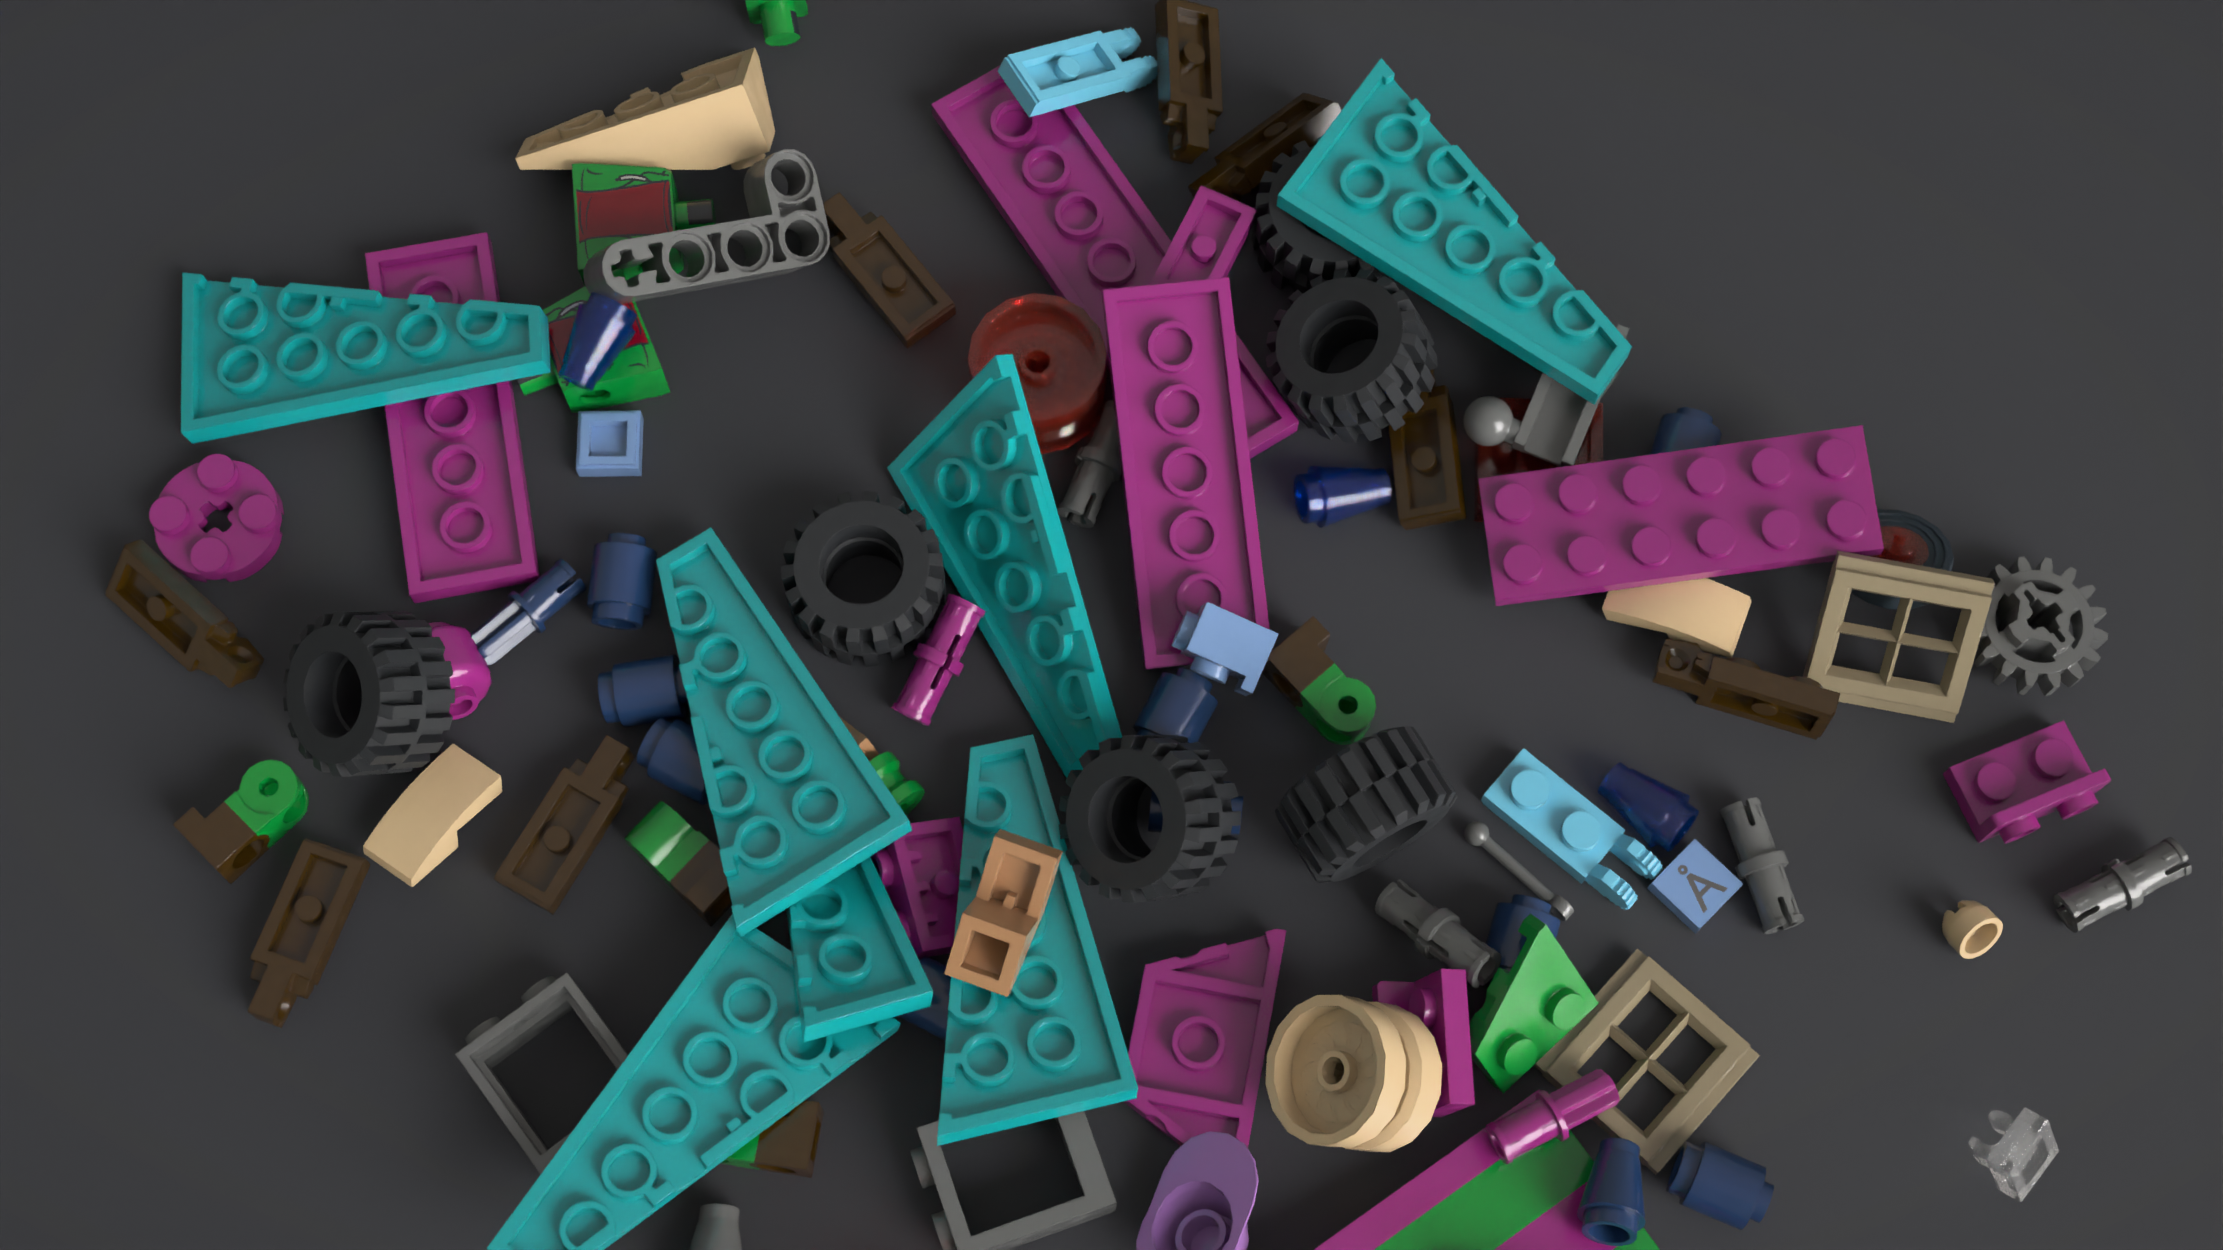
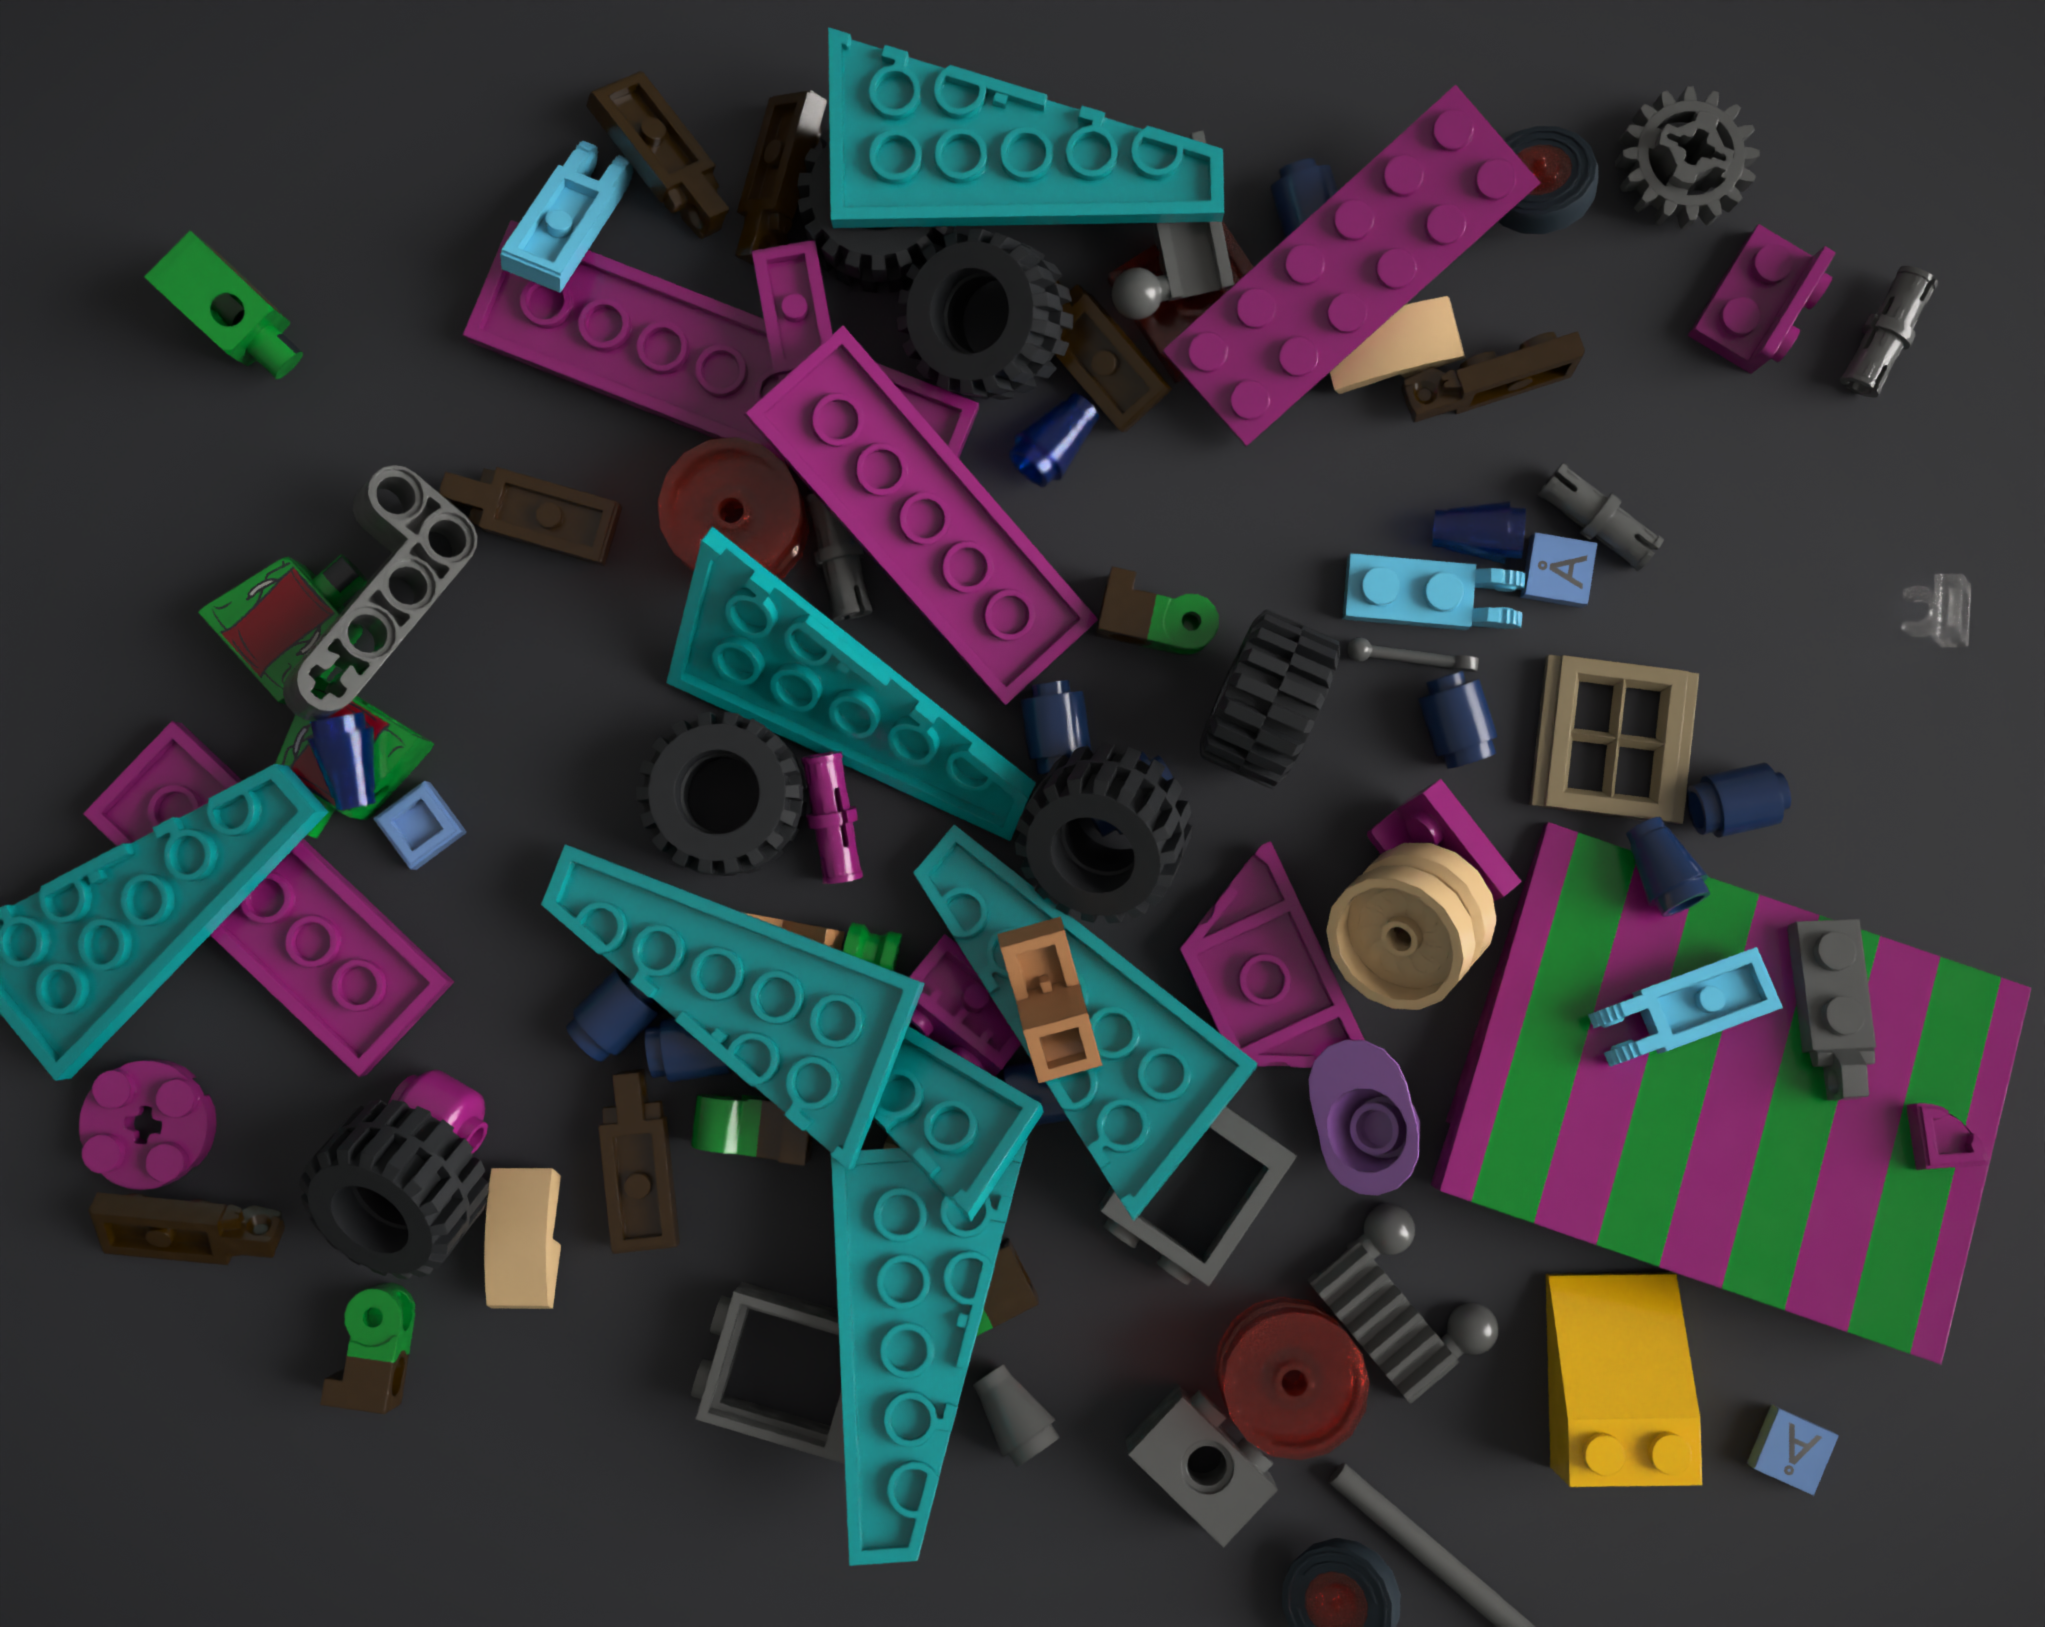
camera: 35 degrees left, 15 degrees up
(303, 928) = (490, 1400): dark brown hinge -> none
(527, 611) = (465, 1019): dark blue axle -> none
(621, 582) = (523, 937): dark blue brick -> none
(700, 124) = (272, 499): tan wedge -> none
(1225, 646) = (1061, 645): medium blue brick -> none
(1437, 933) = (1391, 758): dark grey pin -> none
(1528, 1008) = (1505, 771): wing -> none
(1552, 1115) = (1579, 840): magenta axle -> none
(1909, 584) = (1575, 199): dark tan piece -> none
(1971, 928) = (1796, 452): tan hinge -> none

